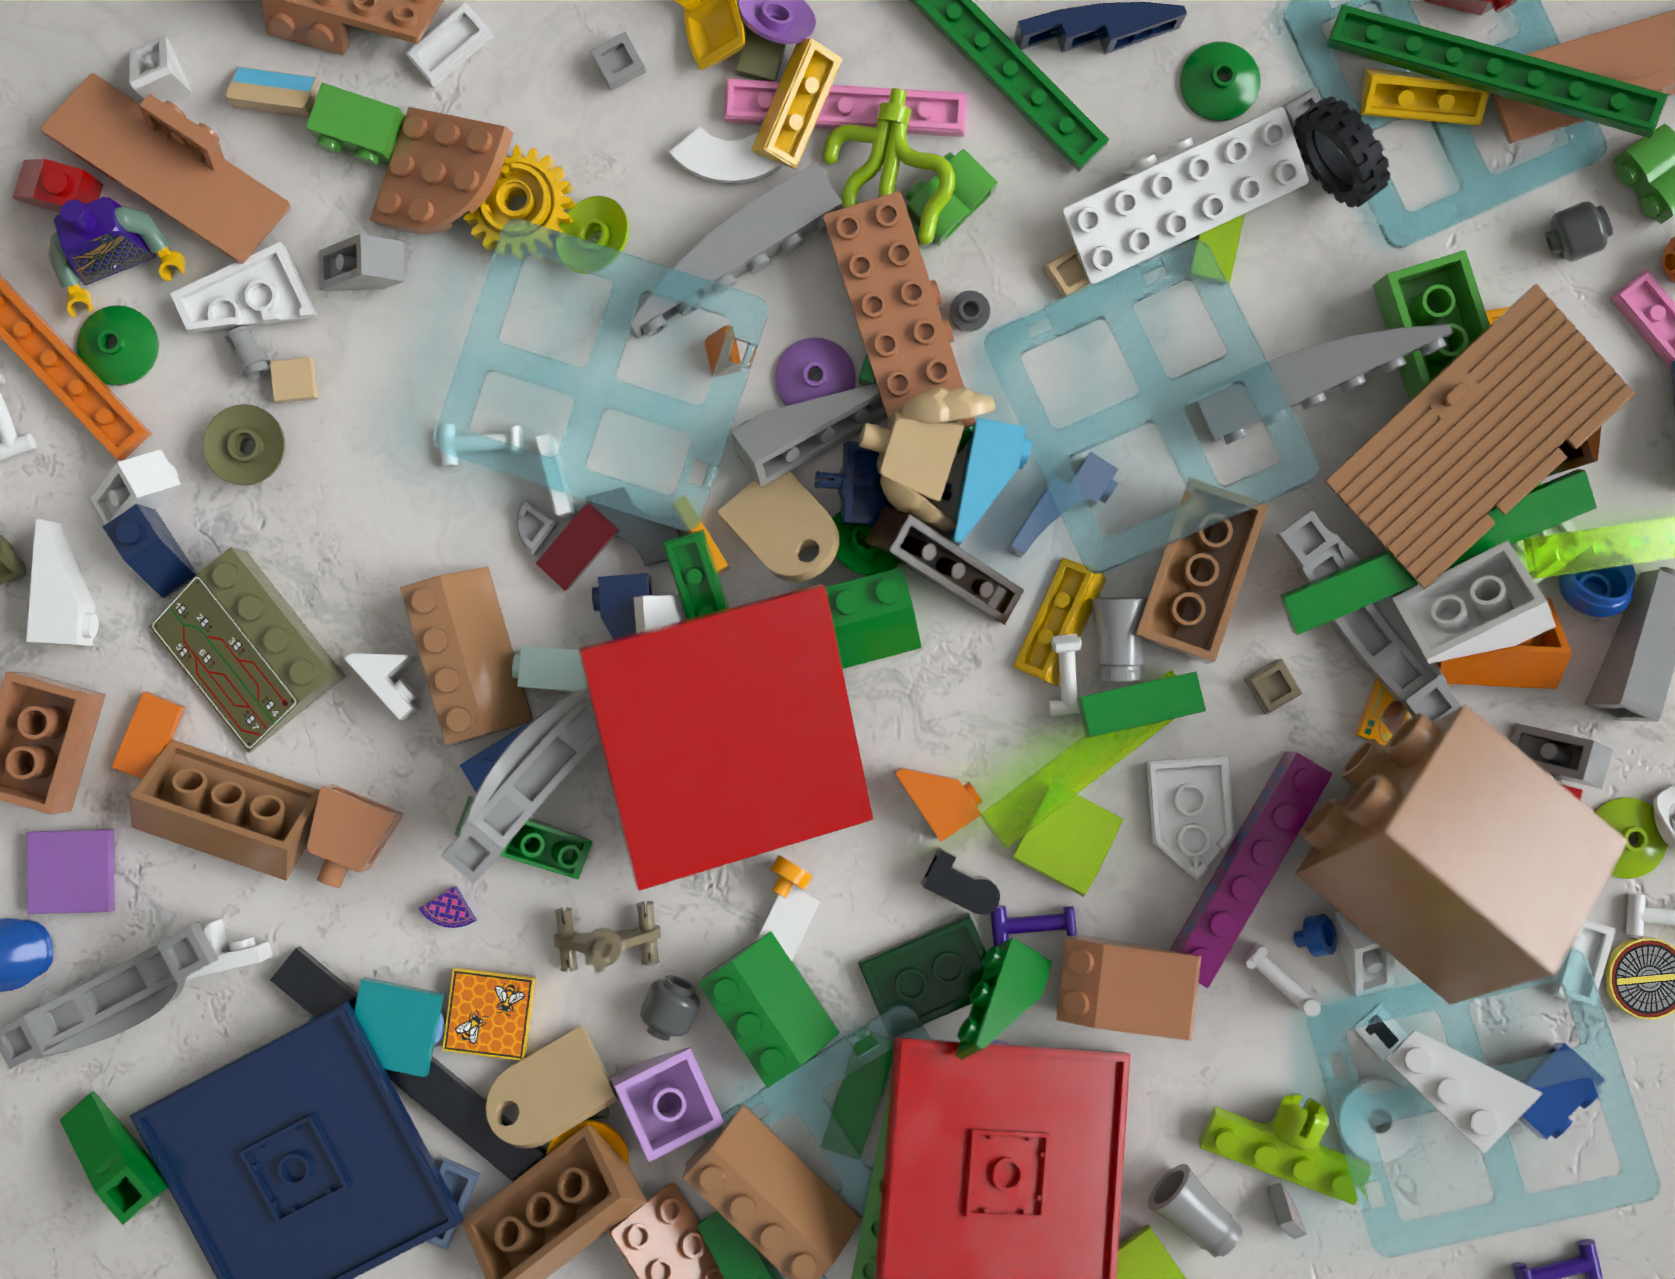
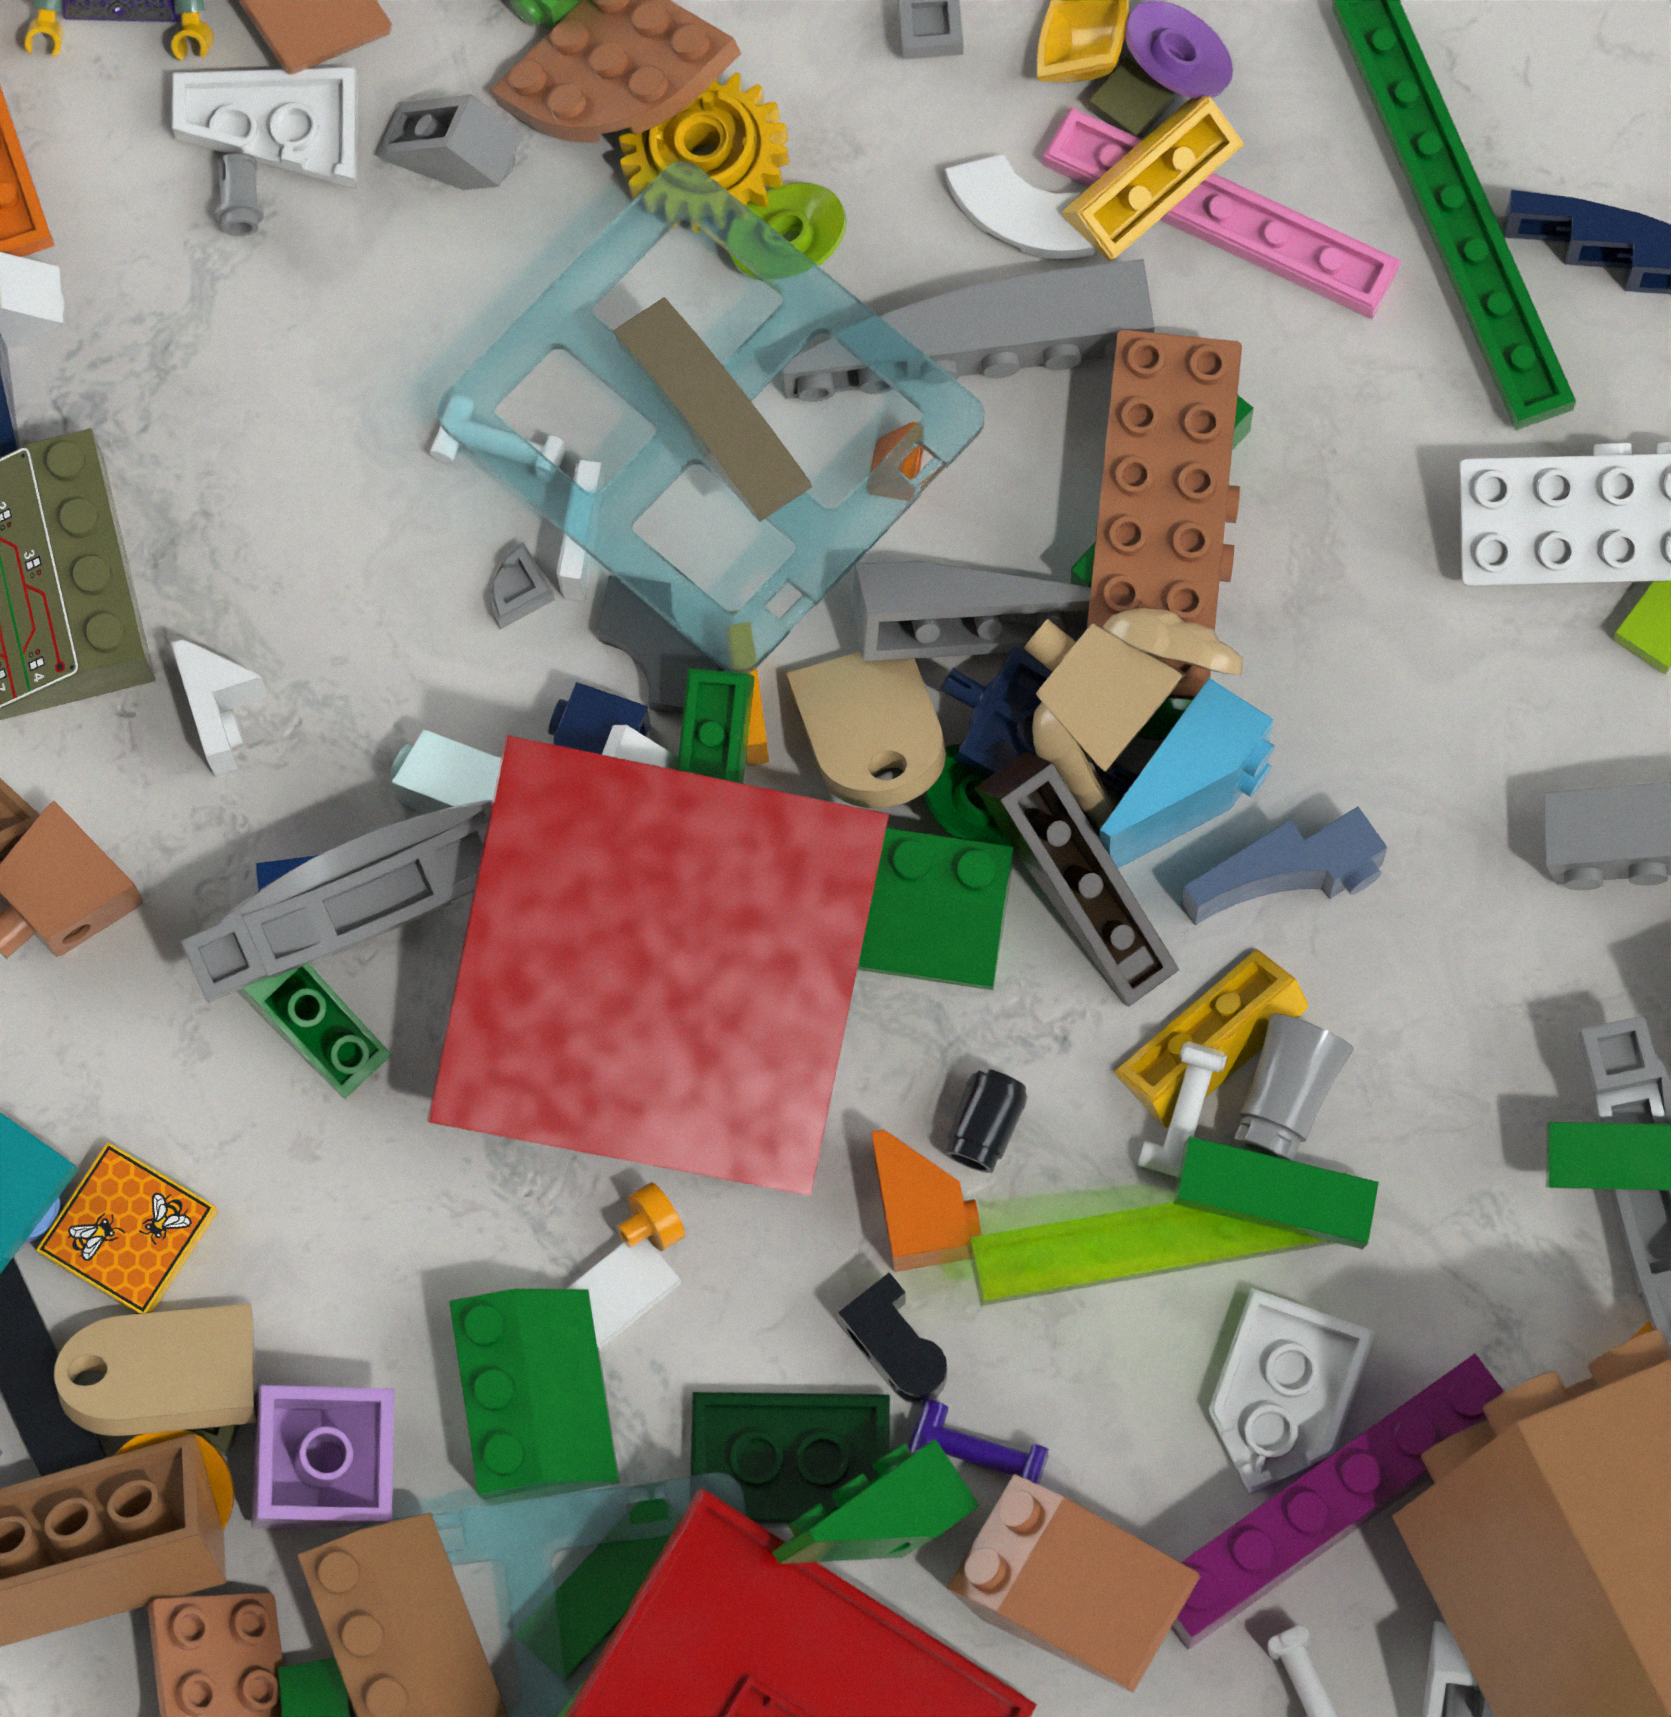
camera: 30 degrees right, 15 degrees down
(135, 346) = (74, 136): green dish -> none
(225, 442) = (168, 285): olive dish -> none
(293, 380) = (282, 256): tan tile -> none
(449, 910) = (142, 1059): dark purple tile -> none
(466, 654) = (338, 714): medium nougat slope -> none
(577, 546) = (566, 636): dark red tile -> none
(603, 376) = (712, 409): none -> dark tan slope
(603, 945) = (342, 1189): dark tan axle -> none
(670, 1007) = (390, 1329): dark grey head -> none
(808, 354) = (1045, 538): medium lavender dish -> none
(887, 150) = (1252, 285): lime plant -> none
(954, 731) = (985, 1120): none -> black piece
(965, 322) = (1268, 568): dark grey plate -> none
(971, 190) = (1314, 385): bright green brick -> none
(1067, 273) = (1437, 563): tan tile -> none
(1070, 844) = (1083, 1352): lime slope -> none
(1159, 402) = (1483, 774): clear light blue window -> none
(1200, 586) = (1444, 1041): medium nougat slope -> none
(1273, 686) = (1488, 1263): dark tan tile -> none
(1317, 935) = (1396, 1651): blue tile -> none

